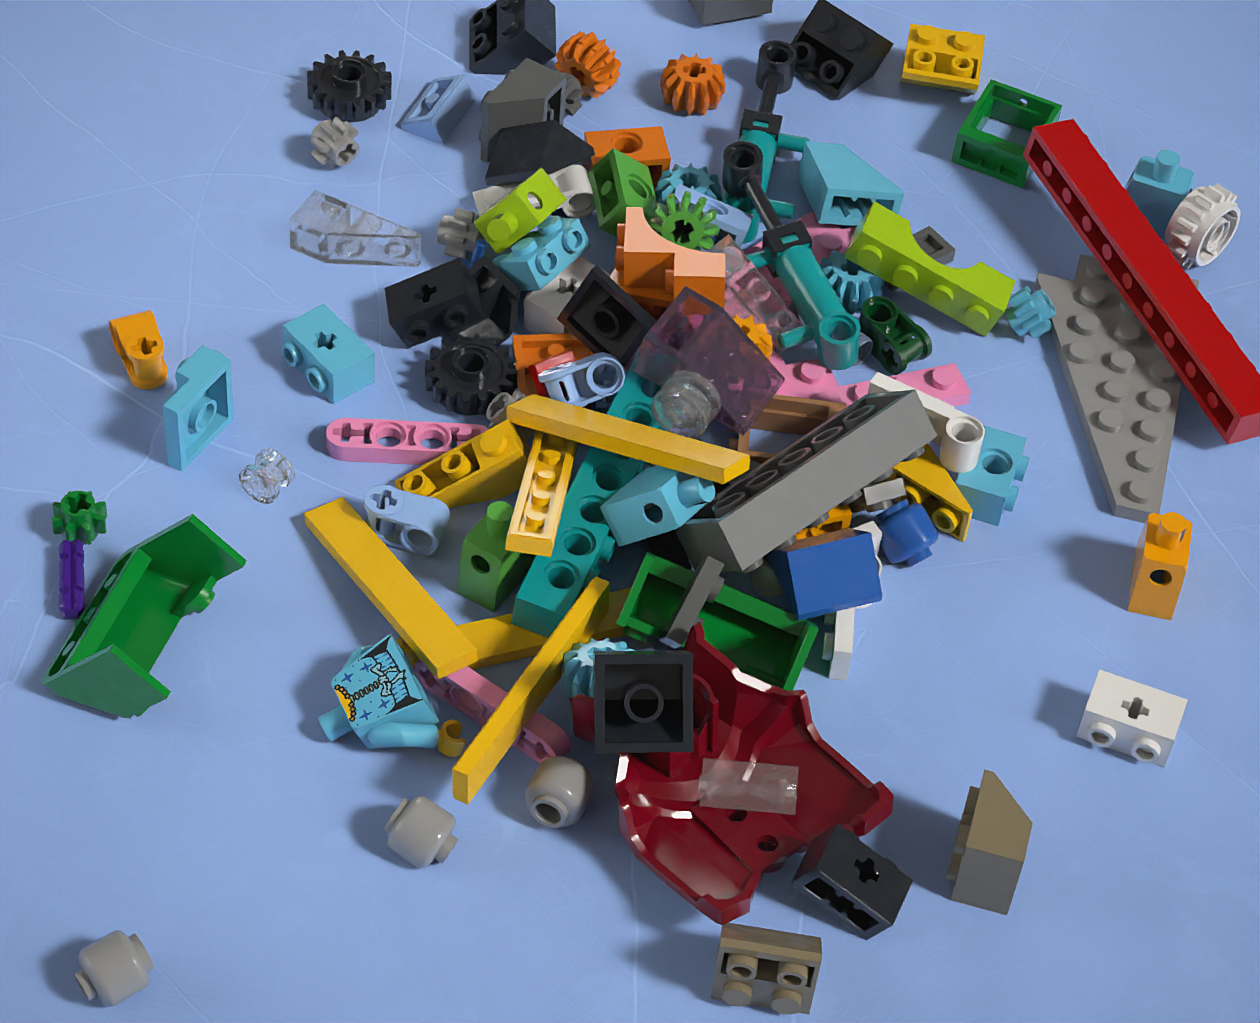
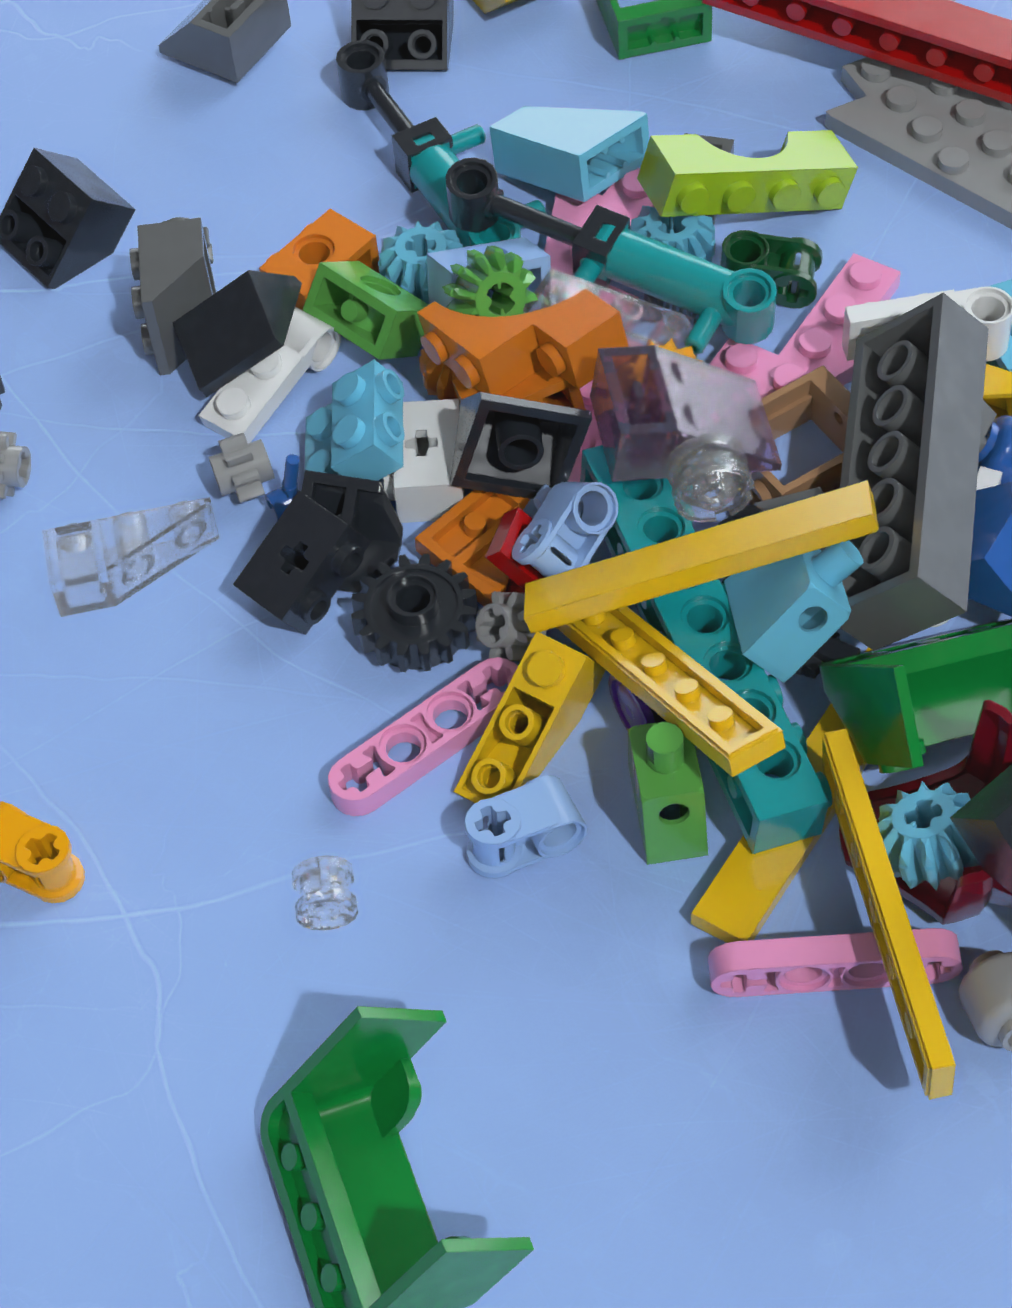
camera: 30 degrees left, 5 degrees up
(71, 579) = (232, 1190): dark purple axle -> none
(79, 517) = (164, 1092): green gear -> none
(198, 407) = (173, 869): medium azure plate -> none
(328, 353) = (241, 703): medium azure brick -> none
(387, 702) = (731, 1046): medium azure torso -> none
(391, 588) = (600, 914): yellow tile -> none
(421, 831) = (924, 1165): light grey head -> none
(440, 108) = (61, 350): light blue slope -> none
(515, 216) = (291, 405): lime torso -> none
(589, 62) = (181, 190): orange gear -> none
(692, 84) = (301, 147): orange gear -> none
(702, 587) = (935, 684): dark grey plate -> none
(1030, 312) = (872, 152): medium azure gear -> none

